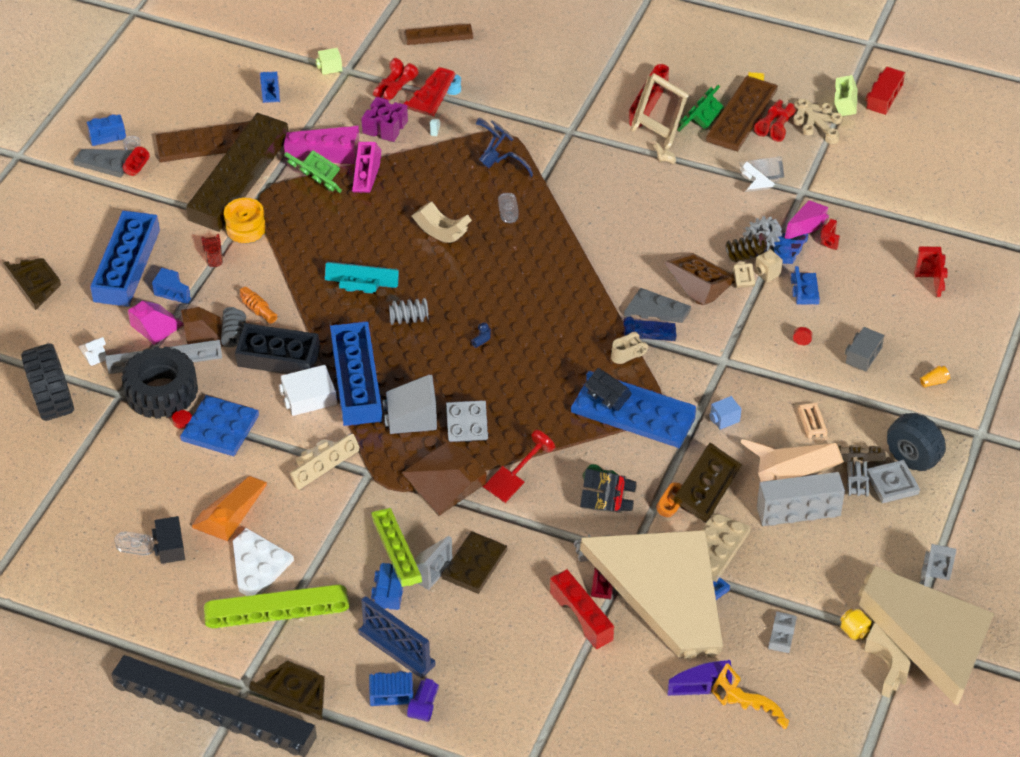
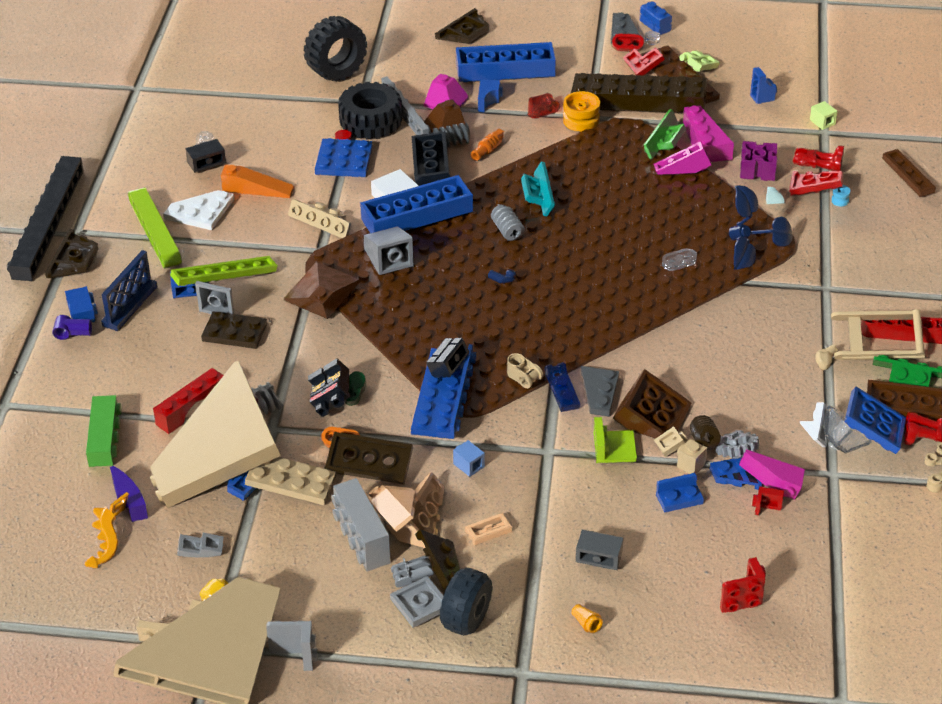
camera: 75 degrees right, 5 degrees down
(94, 351) = (399, 74): white slope -> none
(181, 161) = (642, 64): none -> plate
(199, 116) = (699, 61): none -> yellowish green plate
(438, 225) = (631, 218): tan arch -> none
(467, 421) = (388, 284): light grey bracket -> none
(506, 483) = (332, 329): red piece -> none
(601, 689) = (103, 431): none -> bright green brick
(734, 313) = (613, 445): none -> lime bracket
(765, 142) = (875, 420): none -> blue plate
(802, 336) = (602, 500): red tile -> none

